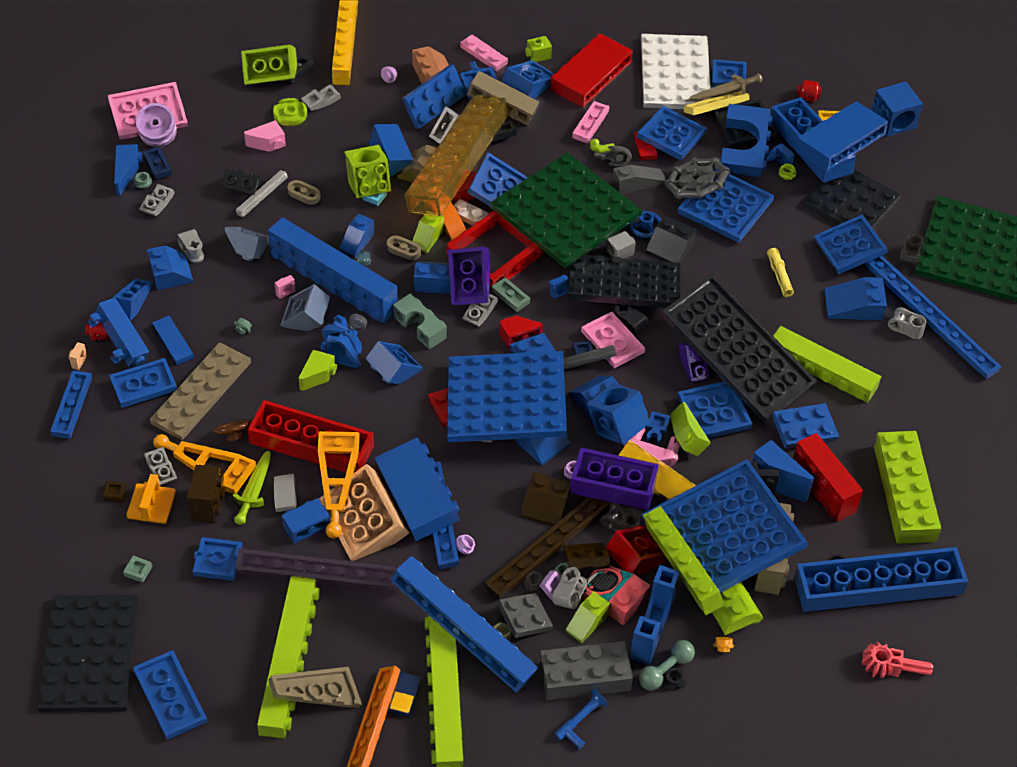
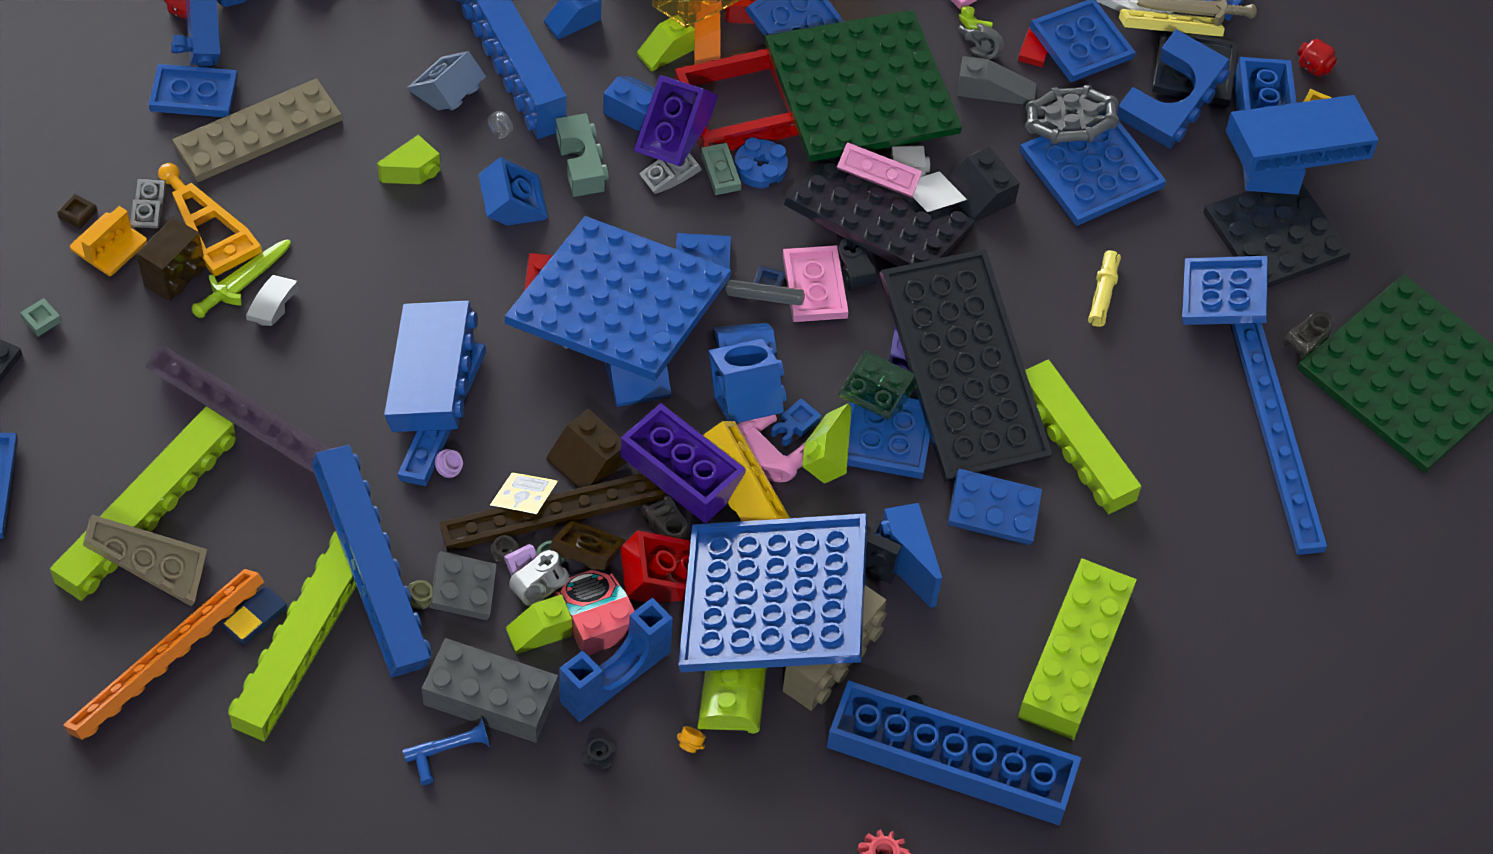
camera: 25 degrees right, 5 degrees up
(71, 404) = (92, 81): blue plate -> none
(77, 356) = (137, 25): light nougat plate -> none
(172, 340) = (264, 52): blue tile -> none
(216, 559) = (136, 344): blue plate -> none
(232, 429) = (259, 194): reddish brown piece -> none
(242, 326) = (357, 70): sand green plate -> none
(285, 286) = (441, 40): bright pink plate -> none
(298, 434) = (345, 246): red brick -> none
(305, 520) = (273, 346): blue brick -> none
(337, 443) = (359, 264): light orange plate -> none
(341, 343) = (463, 141): blue helmet -> none
(363, 258) = (562, 44): clear light blue plate -> none
(369, 515) = (349, 368): light nougat slope -> none
(403, 248) = (627, 54): dark tan plate -> none
(469, 212) = (738, 37): white plate -> none
(518, 329) = (699, 217): red slope -> none
(524, 541) = (524, 493): none -> sticker
(535, 273) = (761, 150): none -> blue plate
(559, 286) = (787, 182): blue plate -> none
(611, 255) = (879, 170): none -> bright pink plate
(645, 222) = (964, 145): blue piece -> none
(646, 256) = (936, 192): none -> white sticker
(652, 678) = (568, 737): sand green piece -> none
(683, 560) = (691, 607): lime brick -> none
(697, 381) = (878, 386): none -> clear green slope
(781, 154) = (1216, 129): blue plate -> none
(787, 171) = (1210, 156): lime plate -> none
(831, 482) = (970, 587): red brick -> none
(856, 299) = (1184, 369): blue slope -> none
(898, 106) = (1421, 130): blue brick -> none
(908, 323) = (1235, 431): light grey piece -> none

